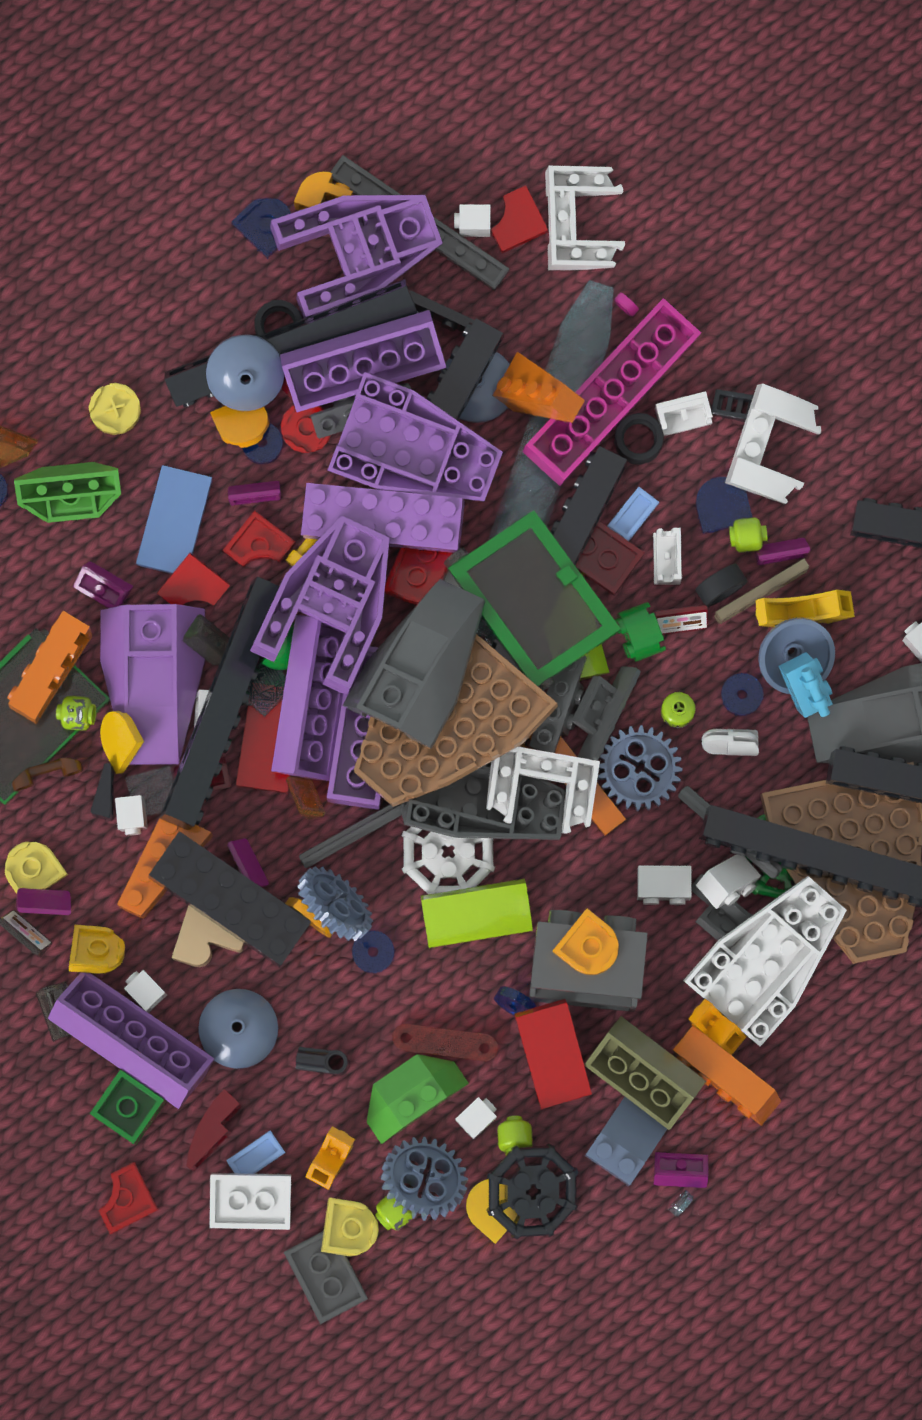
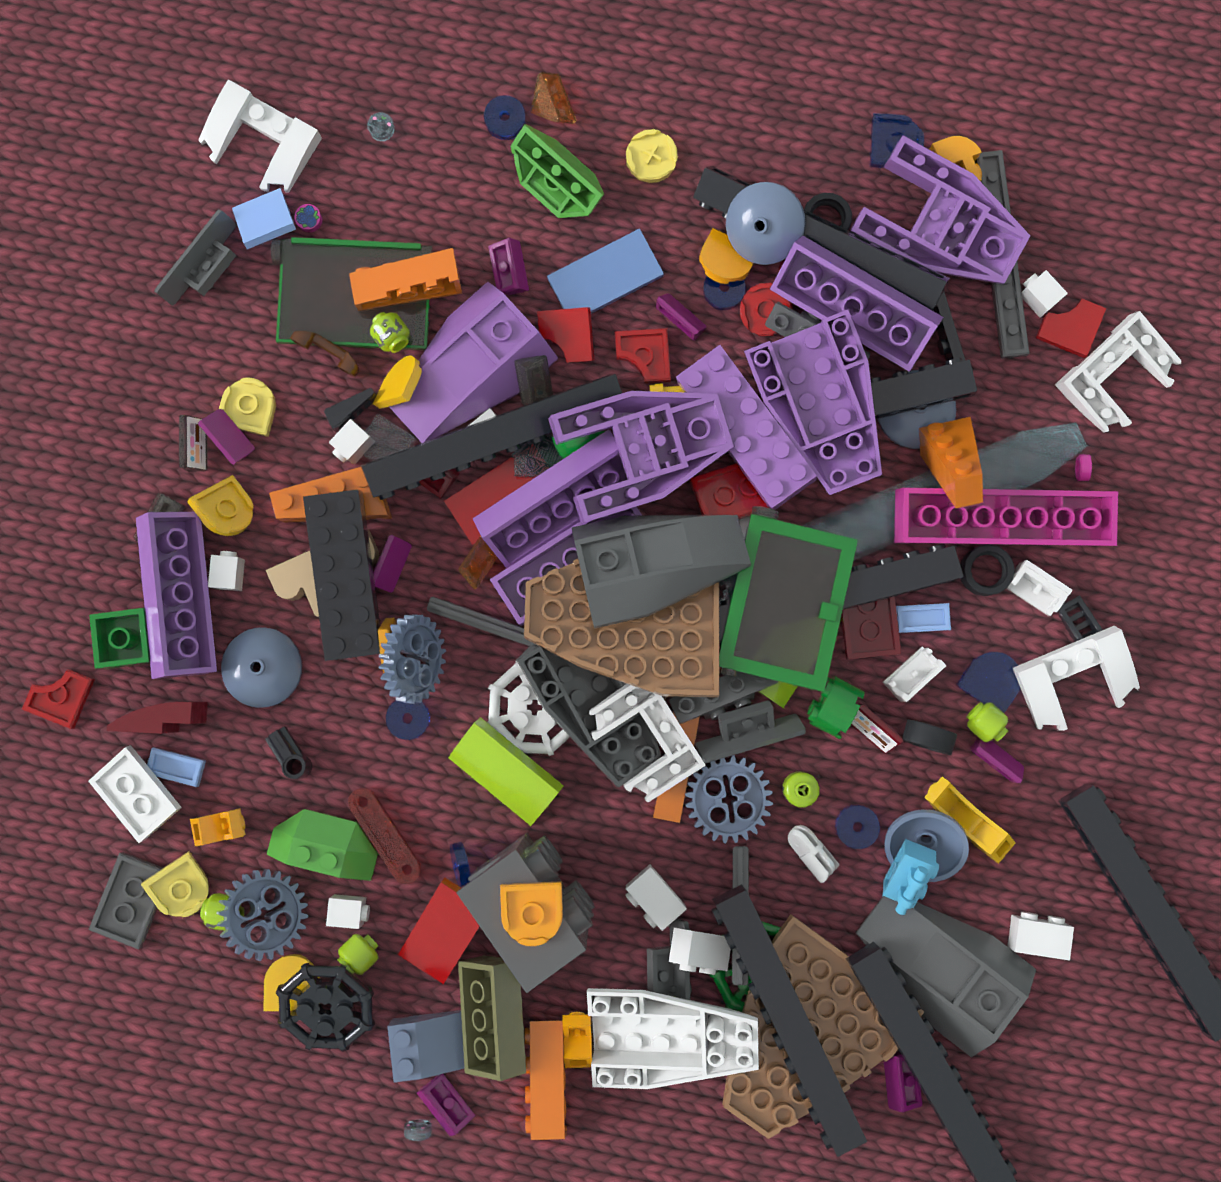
camera: 50 degrees right, 5 degrees up
(761, 591) = (953, 772): dark tan tile -> none

